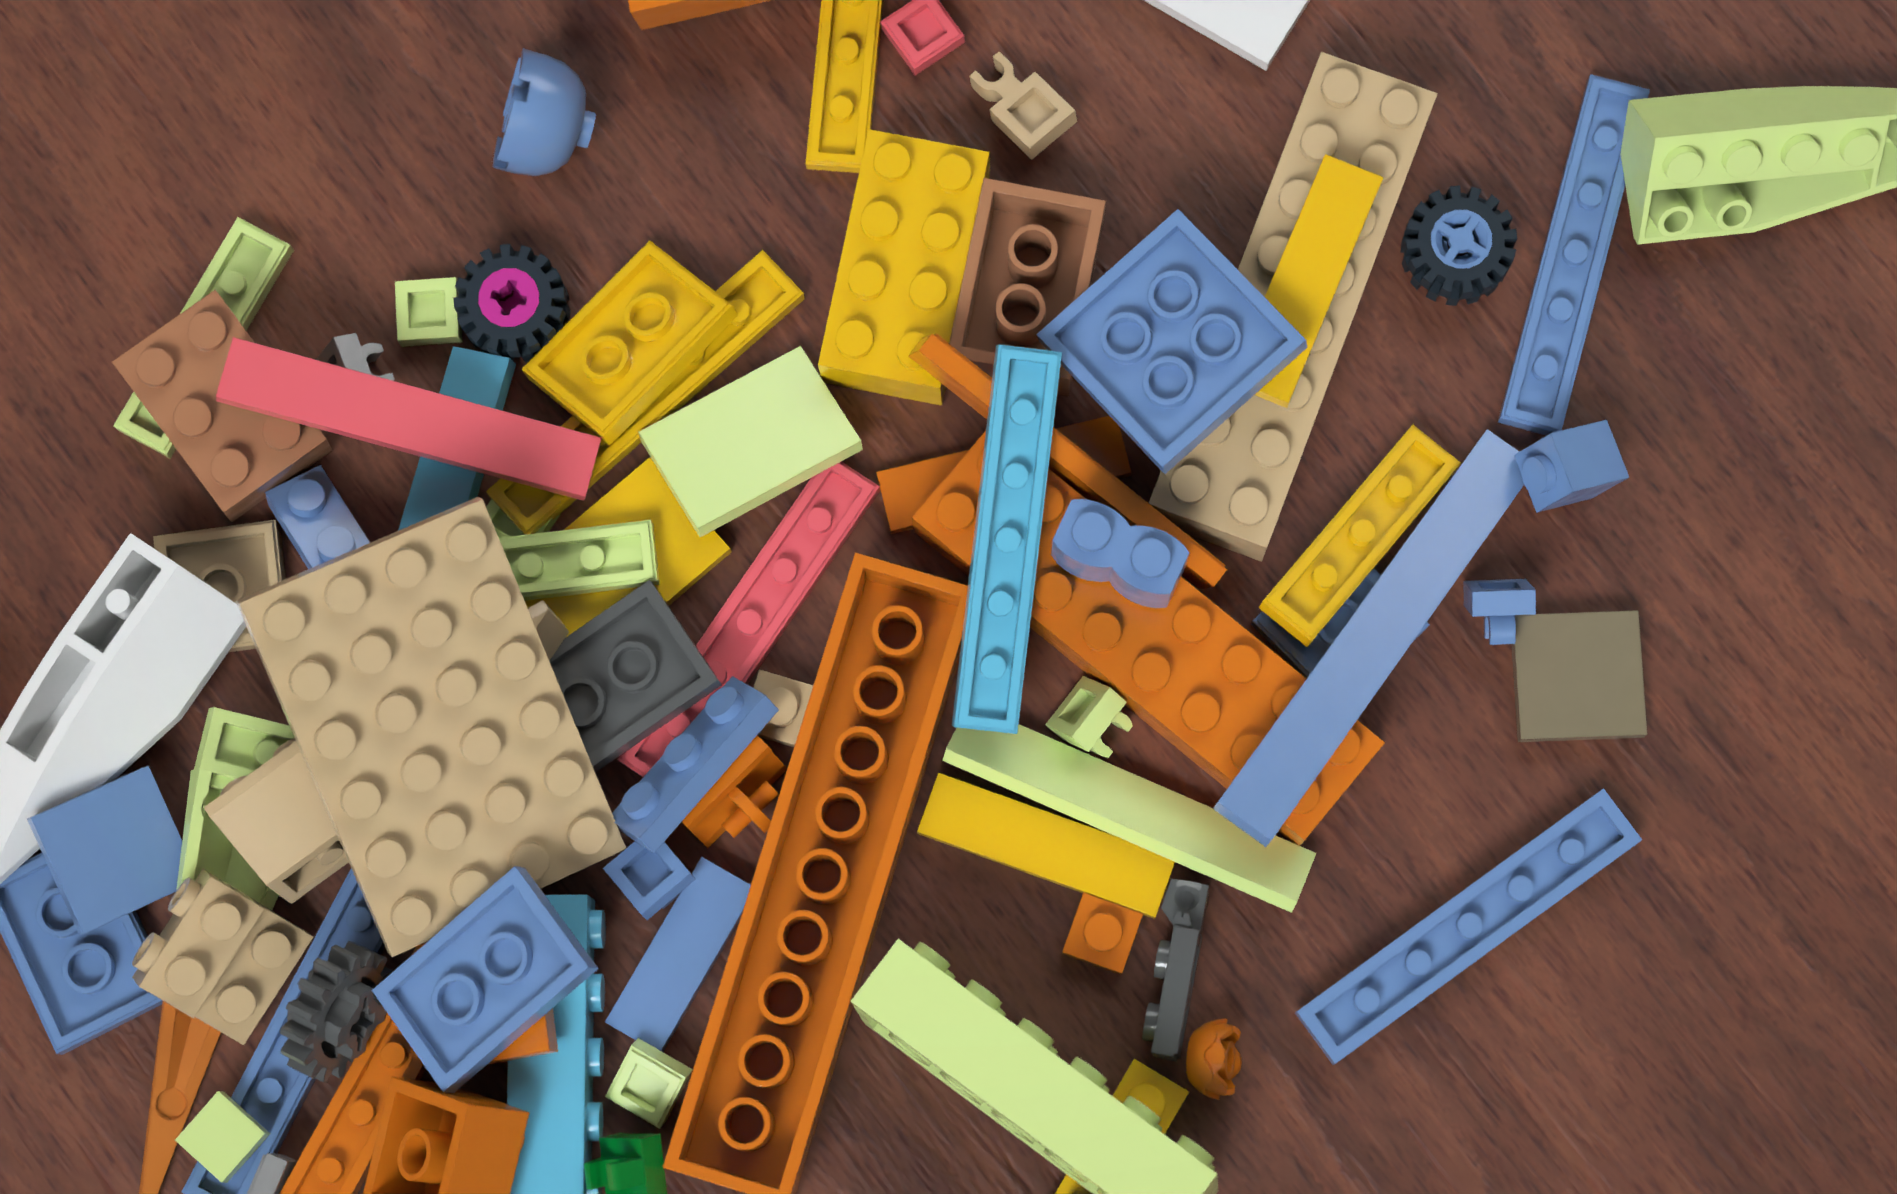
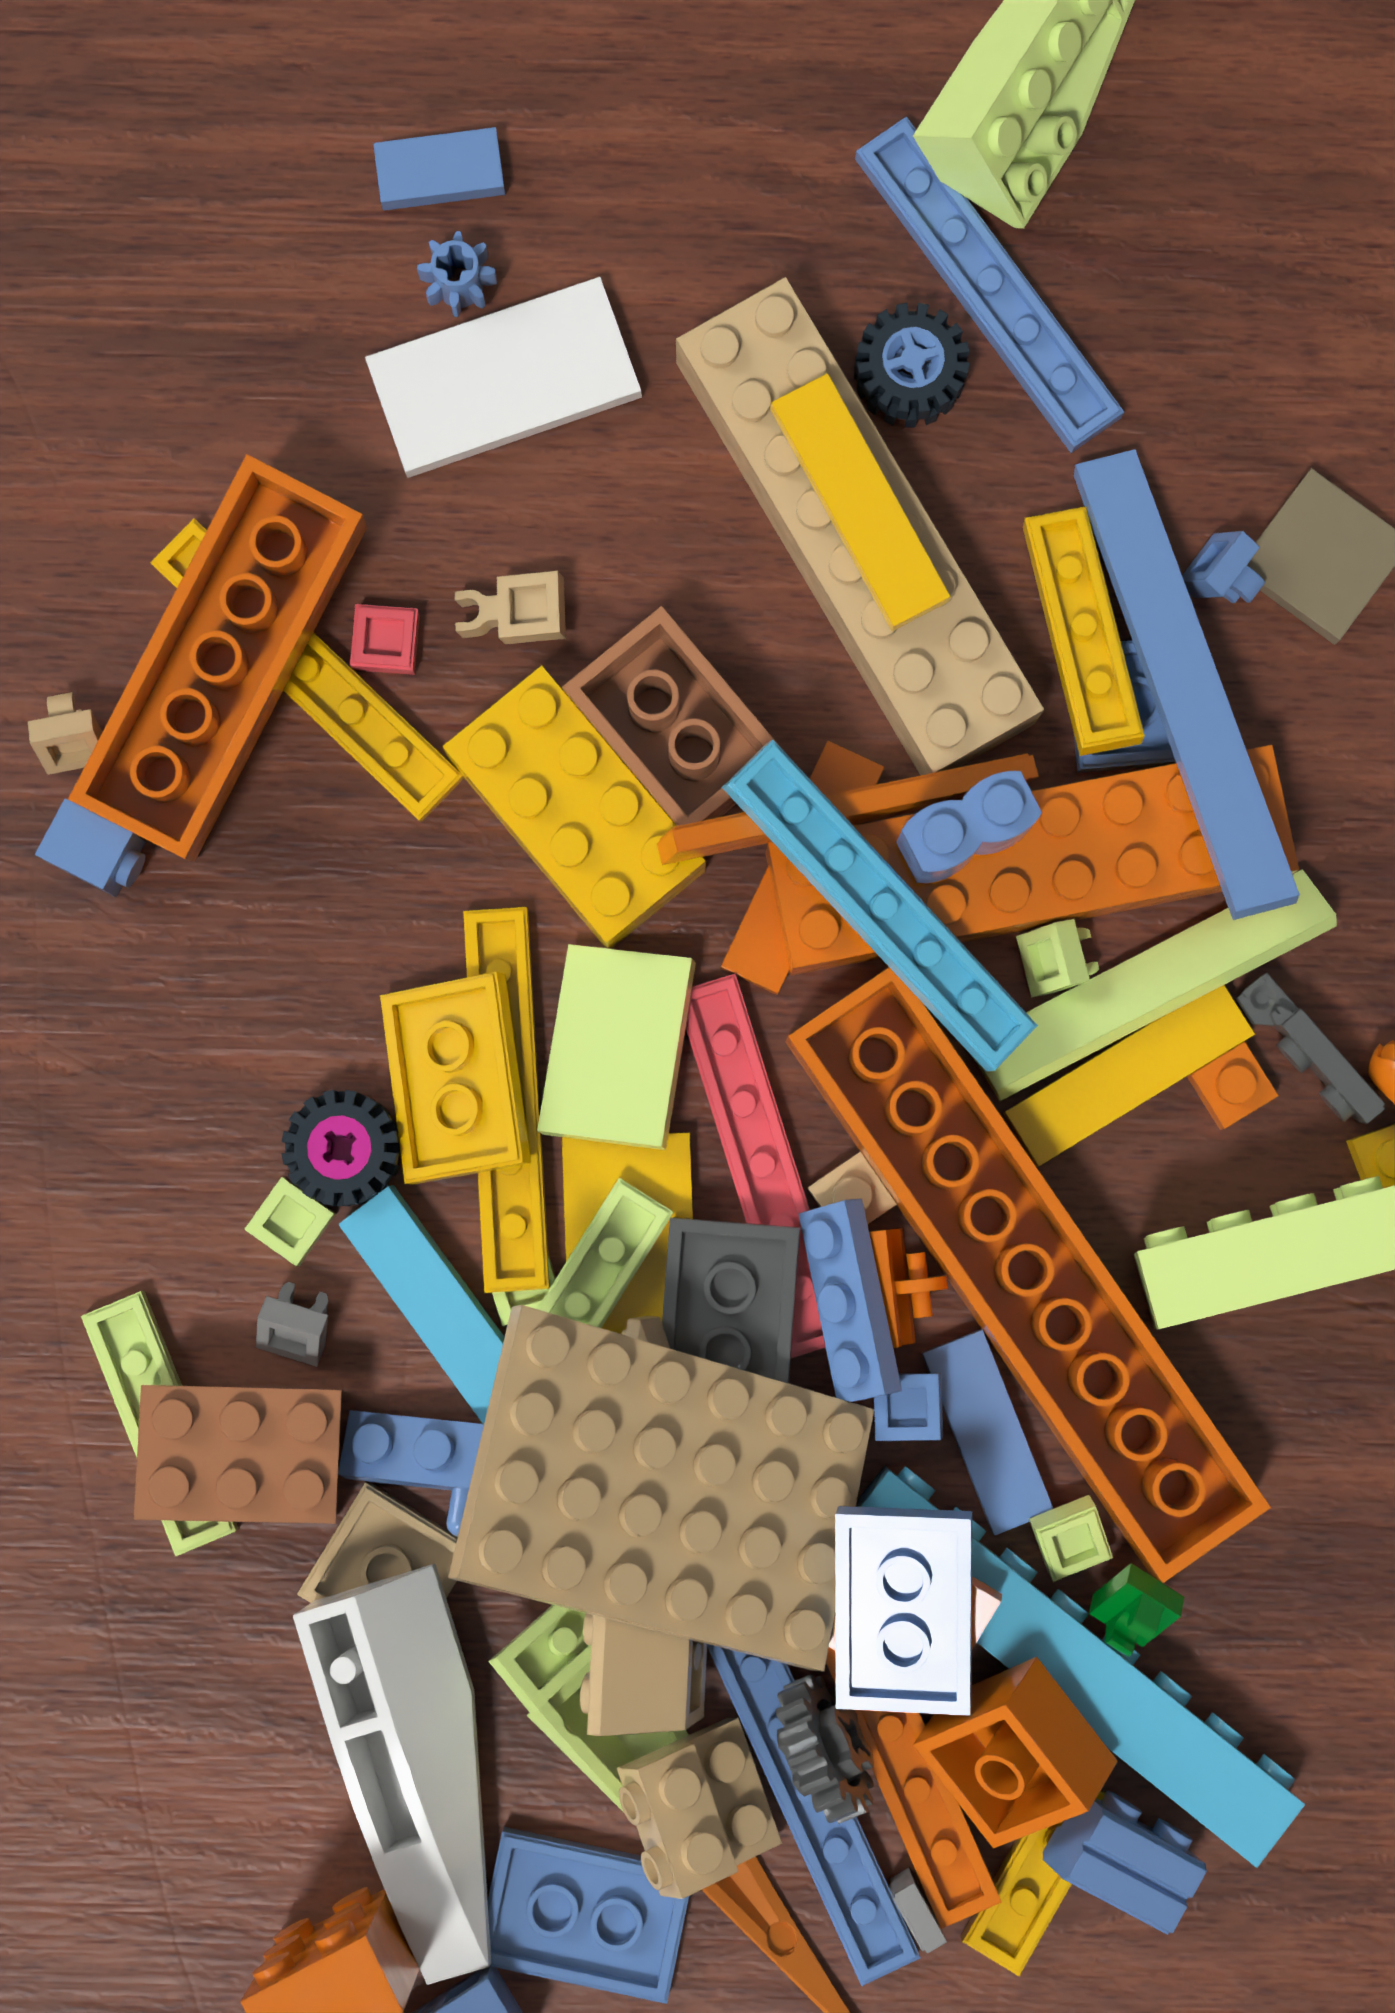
camera: 60 degrees left, 5 degrees up
(110, 849) = (538, 1831): medium blue tile -> none
(222, 1136) = (846, 1919): yellowish green tile -> none
(407, 419) = (379, 1311): coral tile -> none
(542, 117) = (206, 1000): medium blue cylinder -> none
(1172, 341) = (828, 645): medium blue plate -> none
(1571, 466) = (1162, 423): medium blue brick -> none

